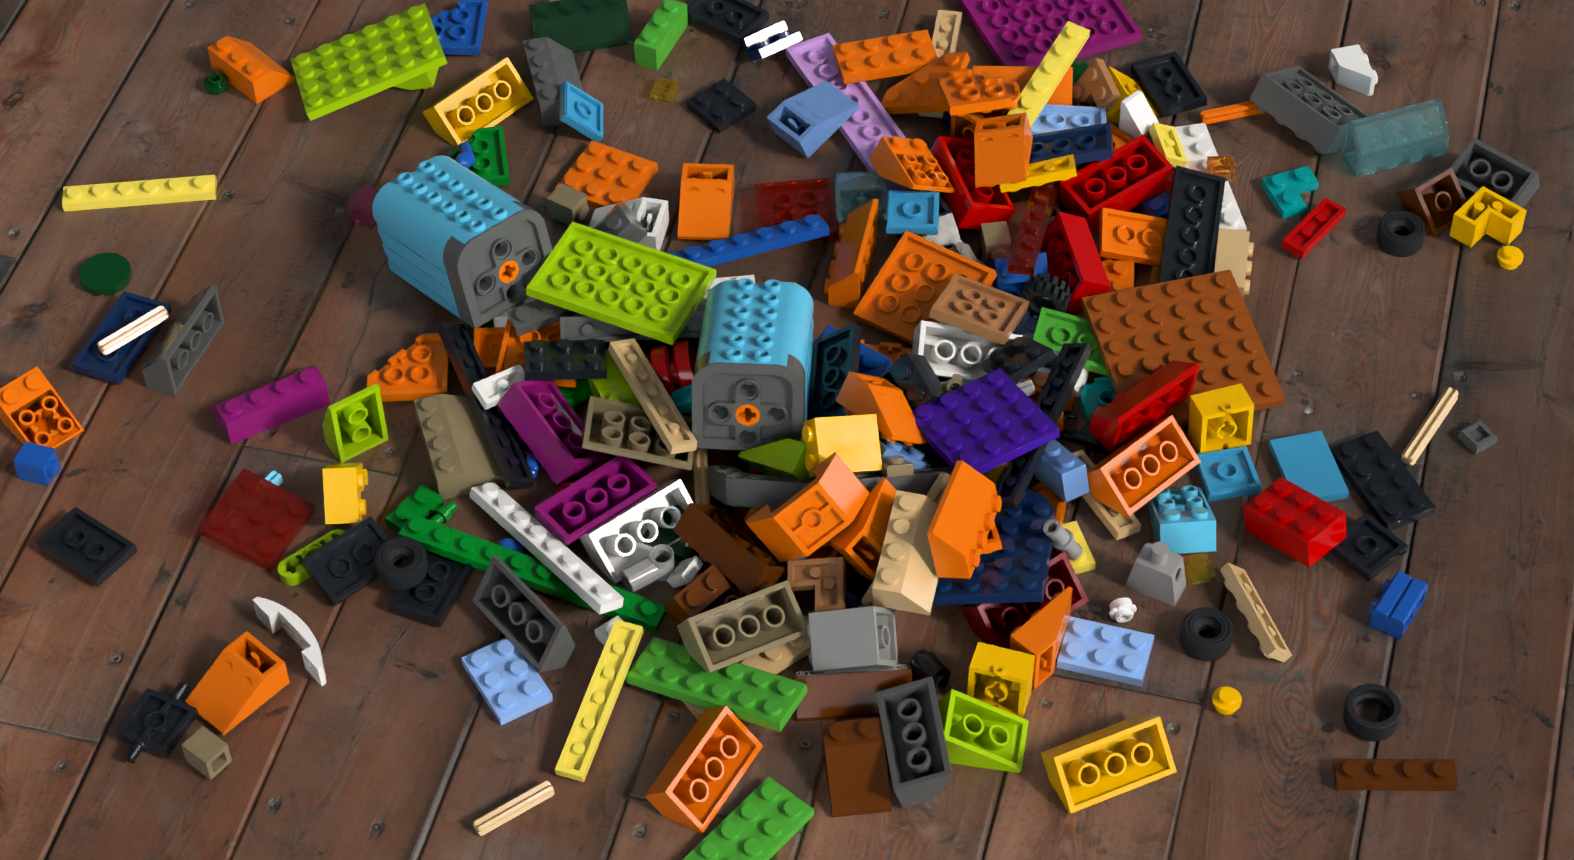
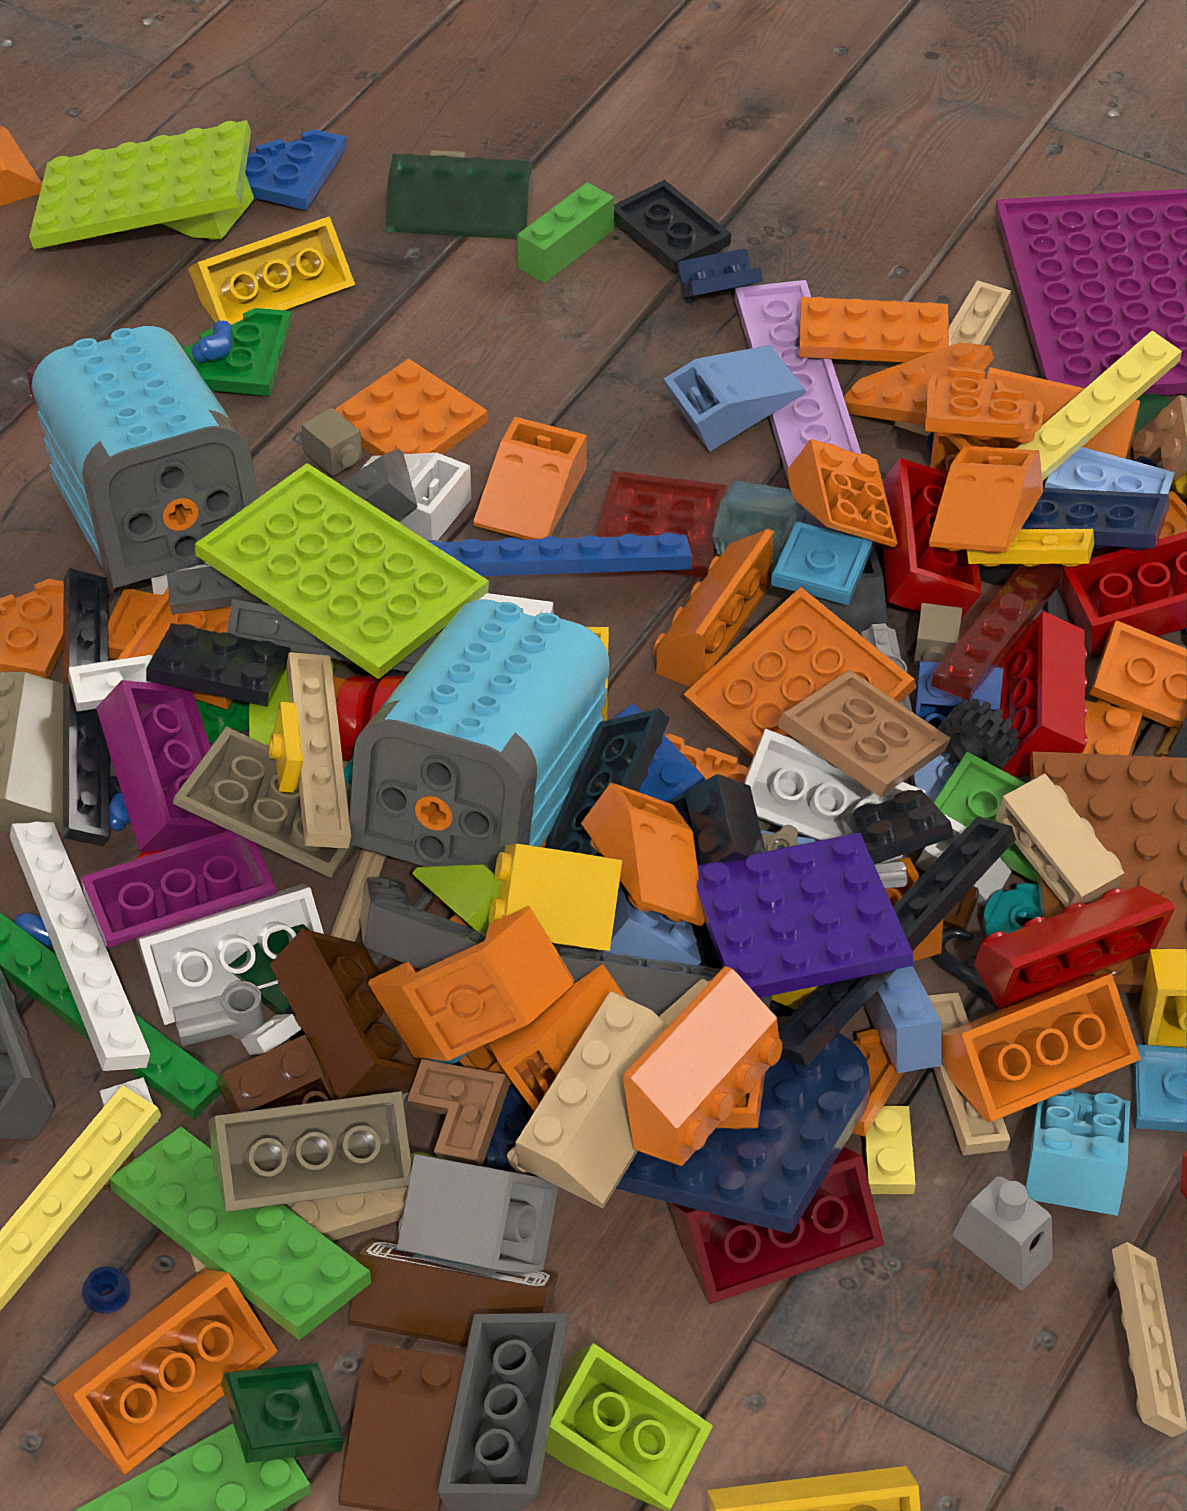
camera: 15 degrees right, 0 degrees up
(547, 69) = (391, 268): dark grey slope -> none
(581, 111) = (406, 315): dark azure tile -> none
(634, 399) = (286, 747): none -> yellow plate
(648, 731) = (104, 1279): none -> clear blue plate
(665, 90) = (543, 312): clear yellow tile -> none
(721, 105) = (614, 350): black plate -> none
(782, 775) = (282, 1412): none -> dark green tile
(896, 466) = (634, 951): dark tan plate -> none
(927, 664) = (584, 1296): black brick -> none
(1001, 677) = (684, 1345): yellow brick -> none
(1044, 635) = (773, 1297): orange slope -> none
(1062, 539) = (865, 1135): light grey pin -> none
(1105, 651) = (881, 1339): light blue plate -> none
(1117, 347) = (1059, 842): none -> tan brick
(1122, 610) = (931, 1275): white plate -> none
(1198, 568) = (1079, 1236): clear yellow plate -> none
(1206, 619) = (1050, 1380): black tyre -> none
(1226, 700) = (1052, 1479): yellow plate -> none

